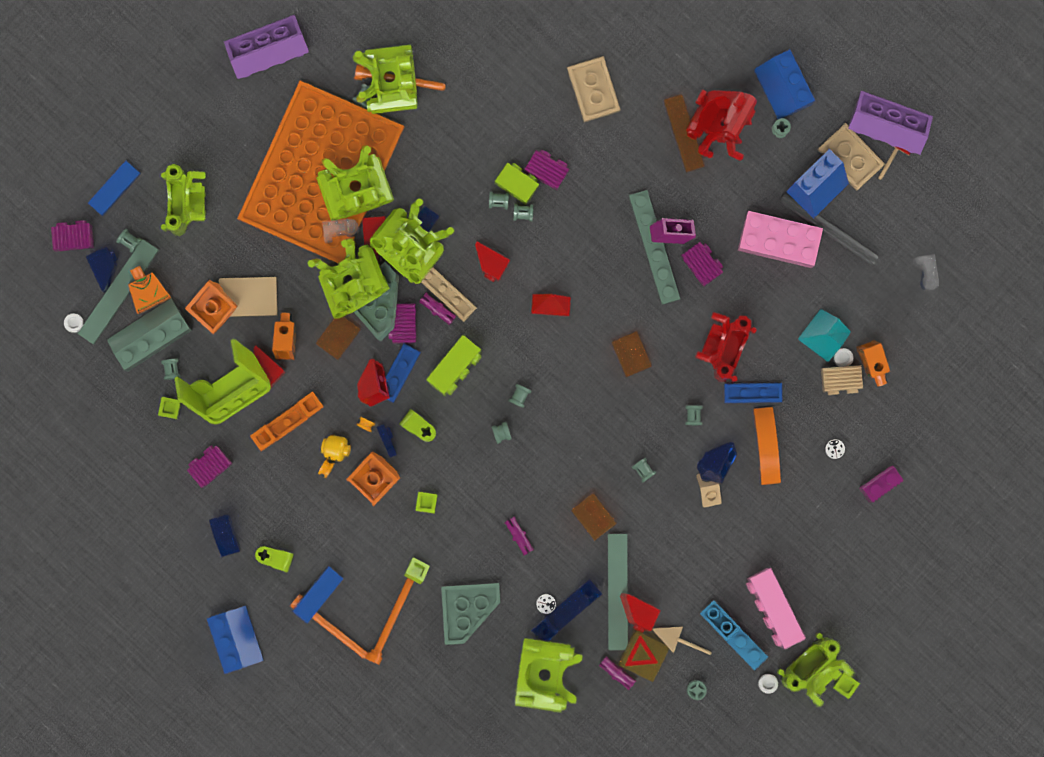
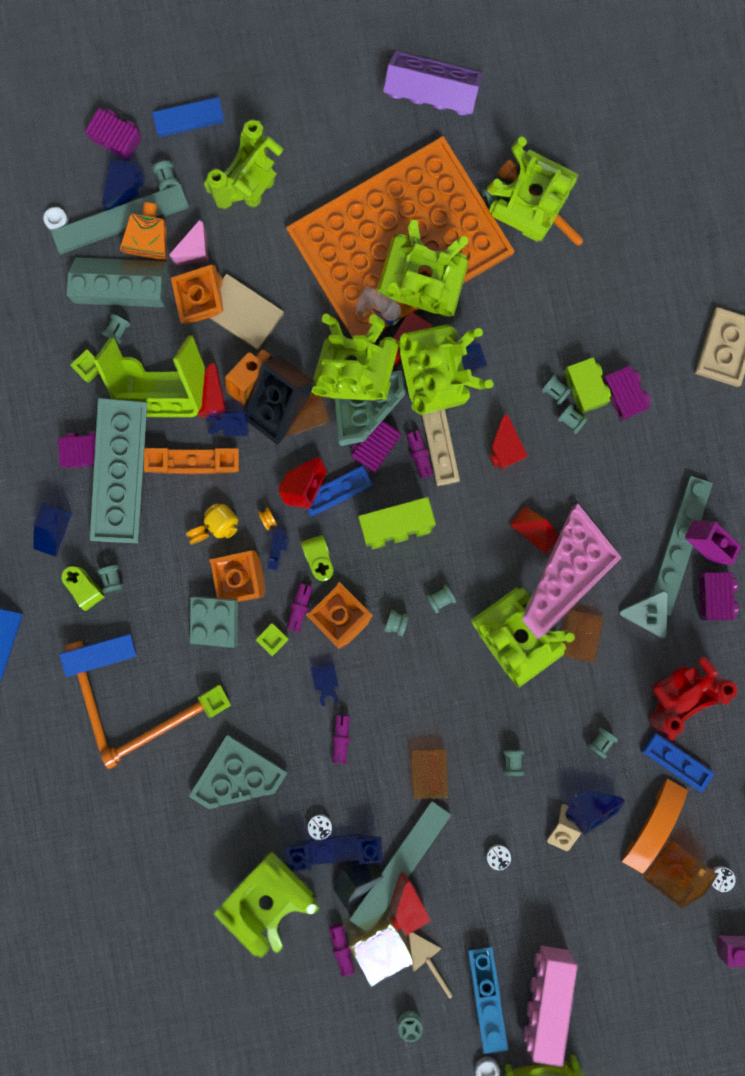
camera: 35 degrees right, 0 degrees up
(183, 277) = (192, 248): none -> bright pink slope
(244, 463) = (118, 470): none -> sand green plate
(289, 539) = (110, 579): none -> sand green bush
(296, 377) = (232, 422): none -> clear blue plate
(315, 339) = (278, 398): none -> black slope
(379, 517) = (214, 621): none -> sand green plate
(429, 469) = (299, 607): none -> magenta pin
(460, 454) = (340, 616): none -> orange slope
(480, 504) = (324, 679): none -> clear blue plate
(569, 385) = (519, 660): none -> lime piece
(591, 312) = (573, 568): none -> bright pink wing
(594, 621) = (355, 882): none -> black slope
(665, 307) = (649, 613): none -> sand green piece
(678, 539) = (498, 857): none -> white tile
(804, 465) = (680, 875): none -> clear orange slope

